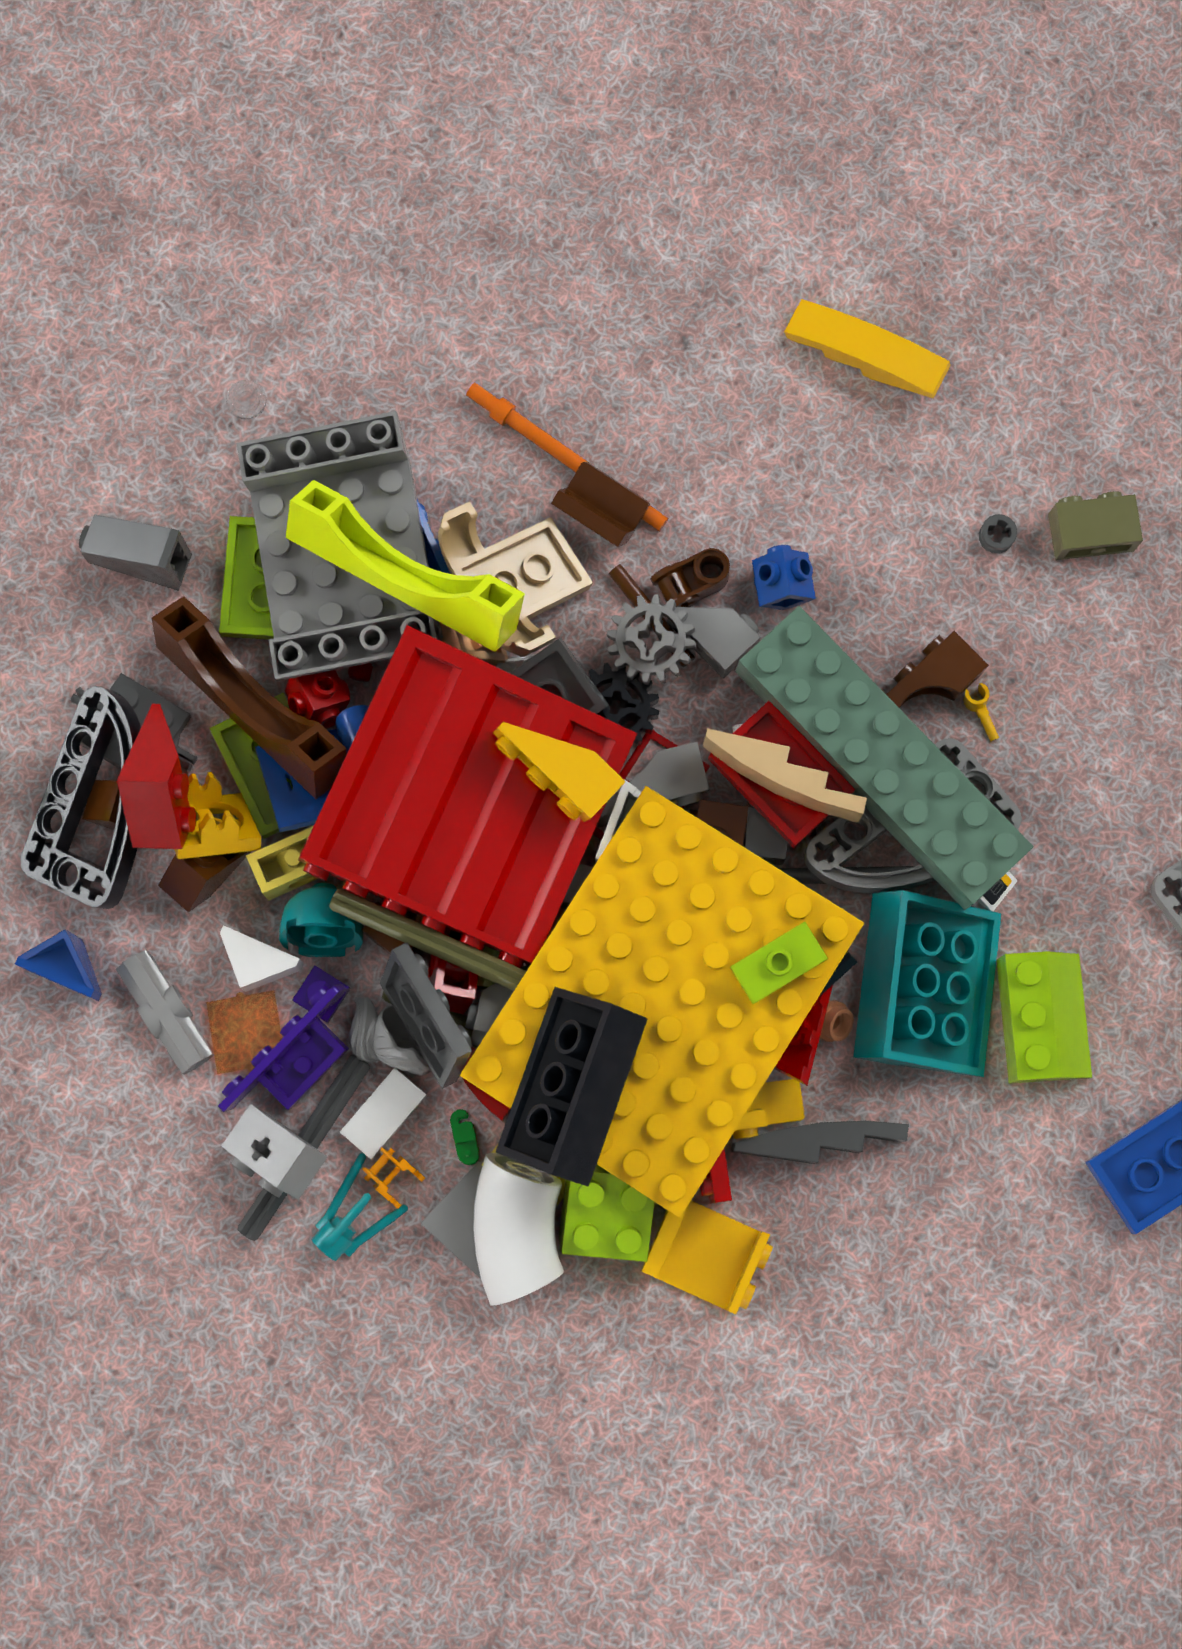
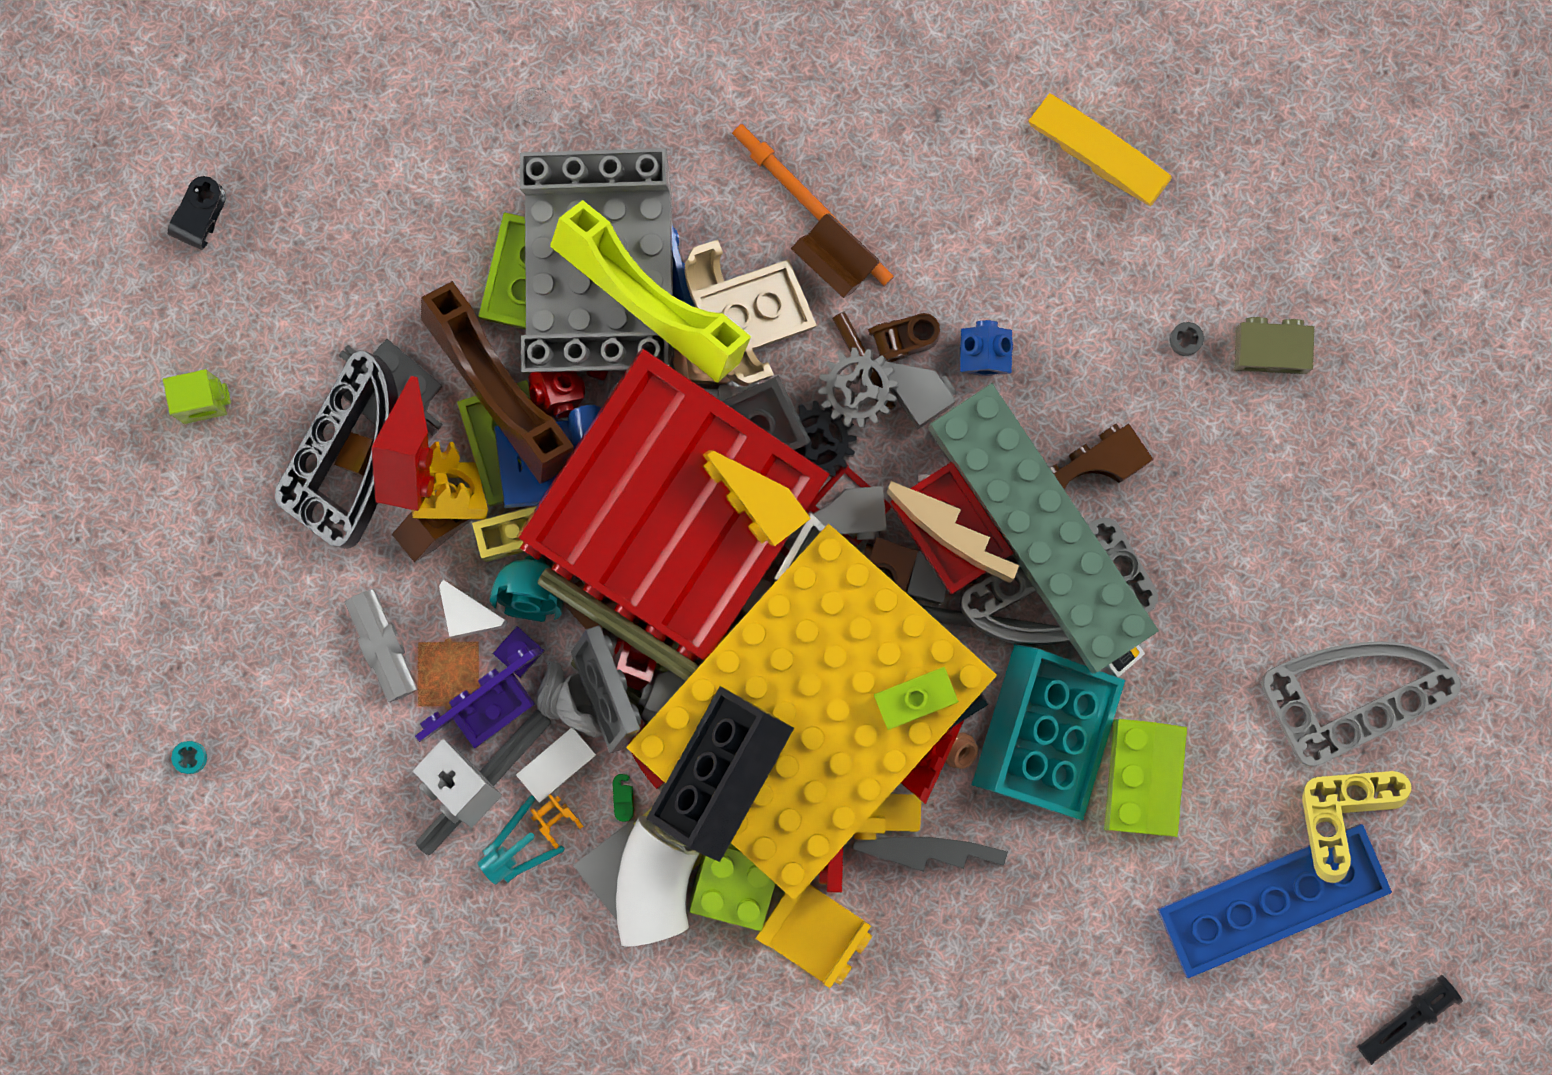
camera: 10 degrees right, 5 degrees up
(63, 962) = (301, 589): blue slope -> none
(136, 550) = (416, 230): slope -> none
(981, 710) = (1141, 494): yellow hand -> none

